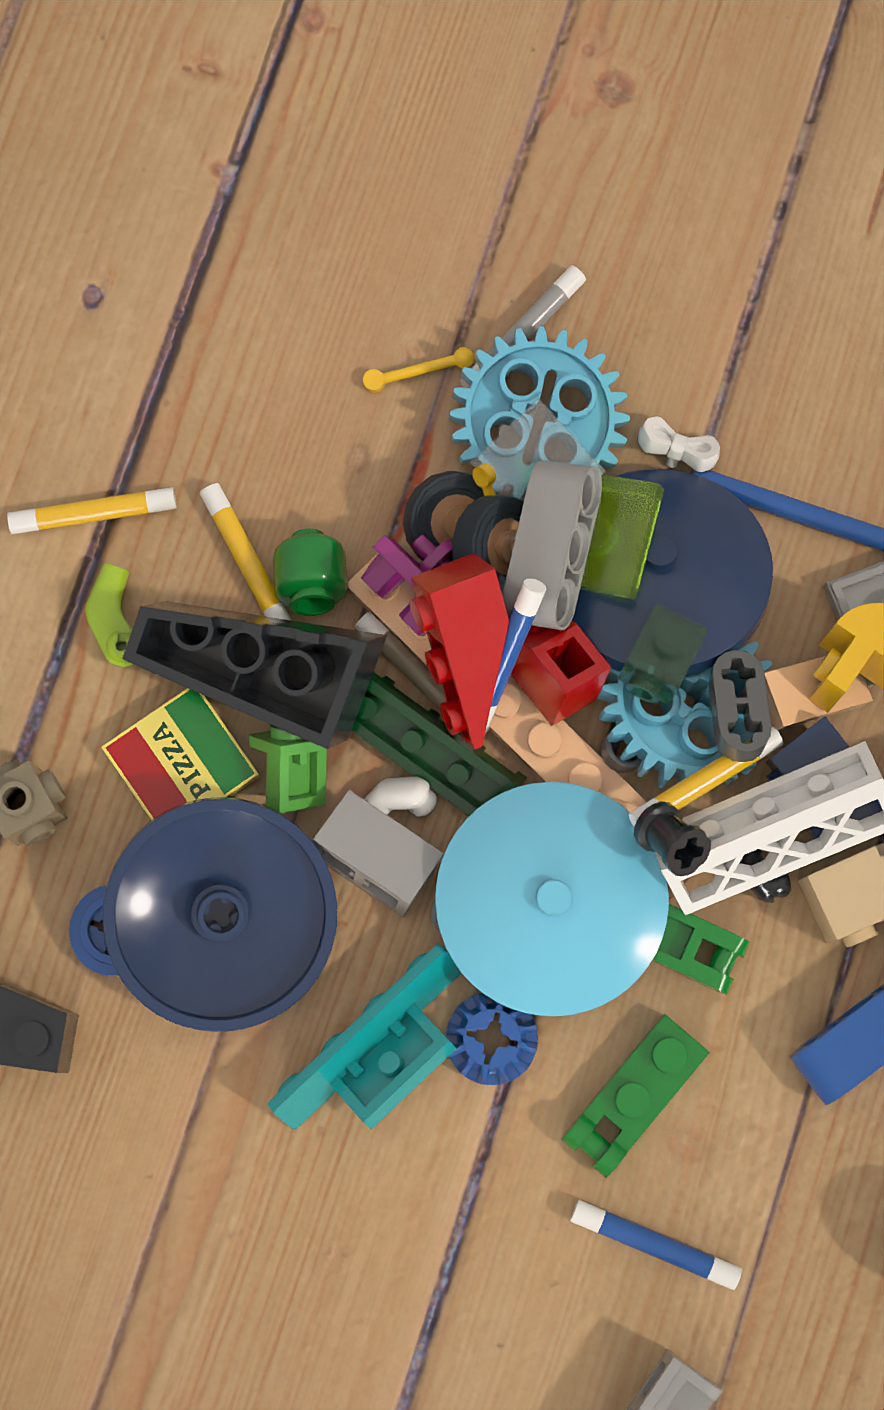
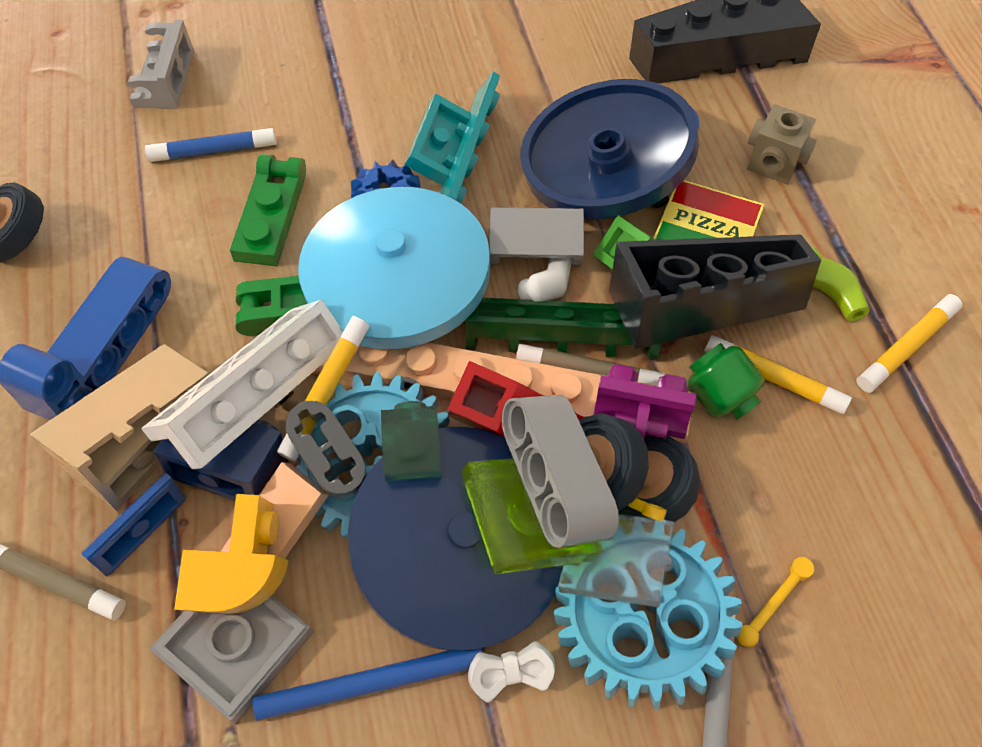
camera: 150 degrees right, 20 degrees down
(467, 633) = (587, 363): slope -> none
(518, 628) = (537, 376): blue bar -> none
(679, 845) = (323, 312): black bush -> none

